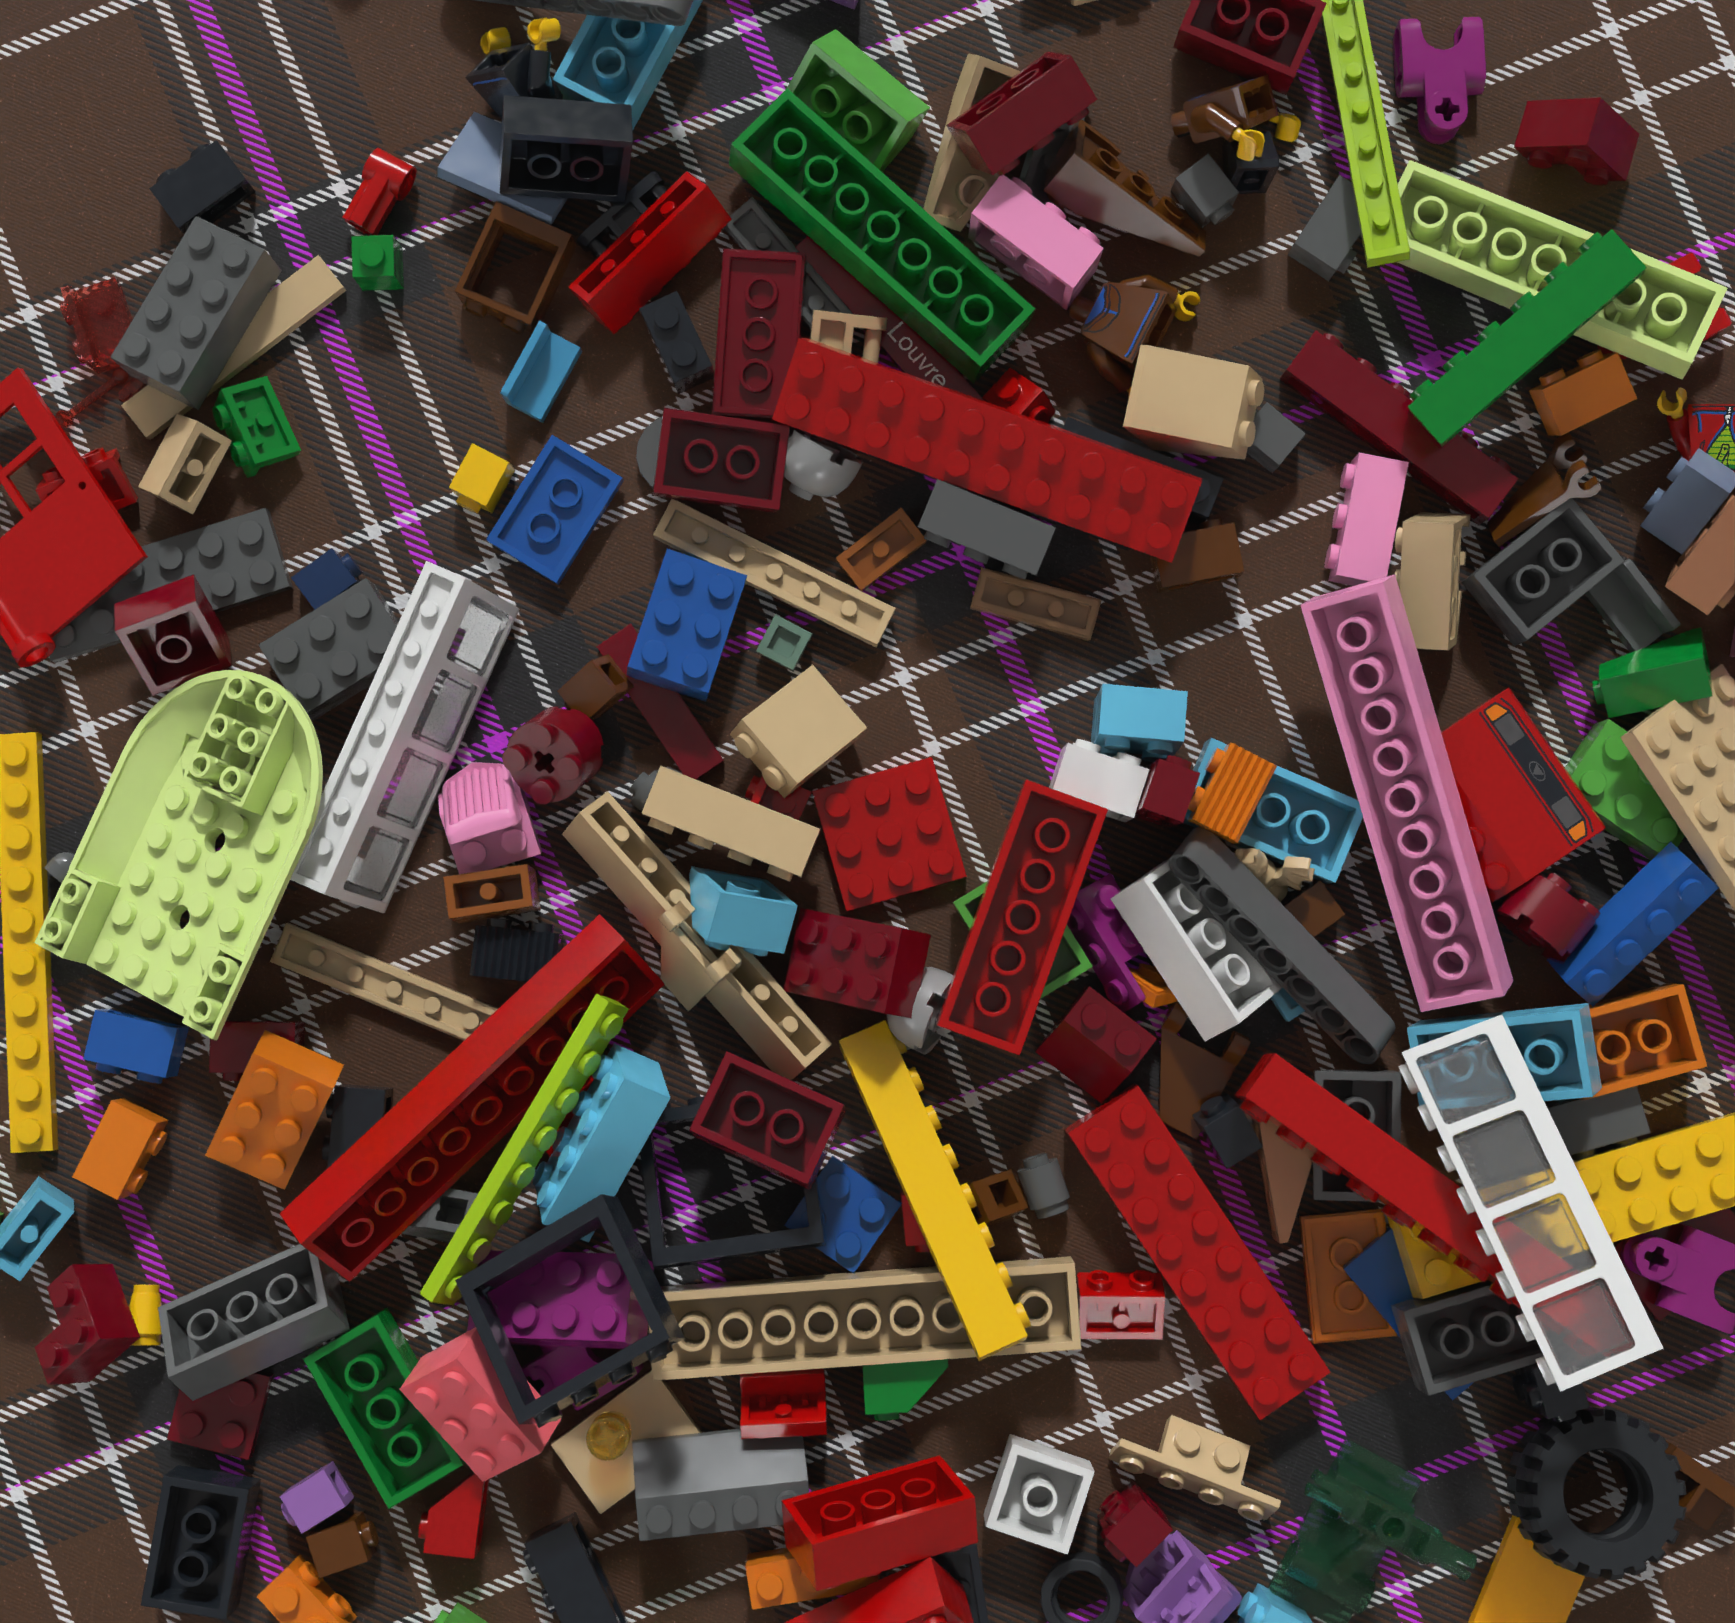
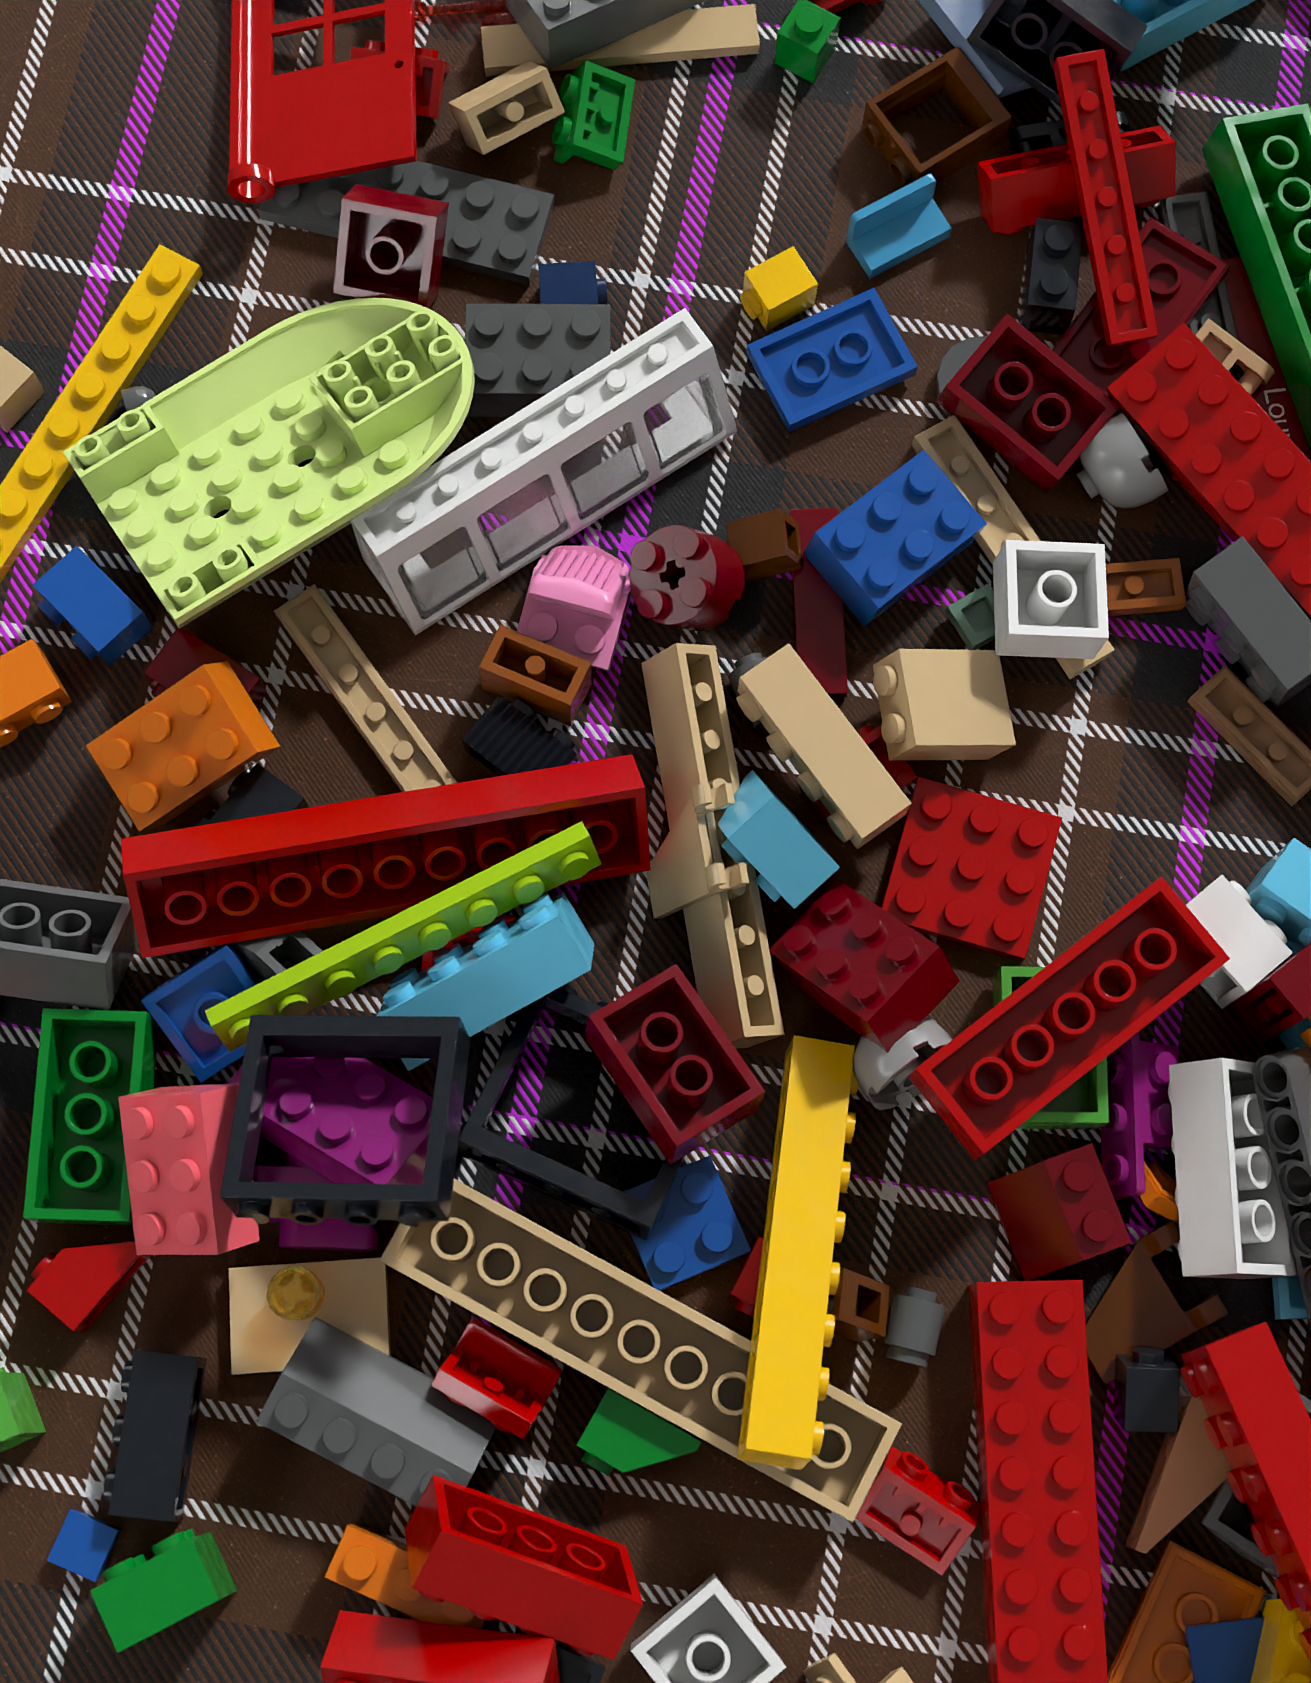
camera: 30 degrees right, 10 degrees down
(403, 1277) = (181, 1006): none -> blue plate
(681, 265) = (1105, 198): none -> red plate
(827, 607) = (1050, 599): none -> white brick

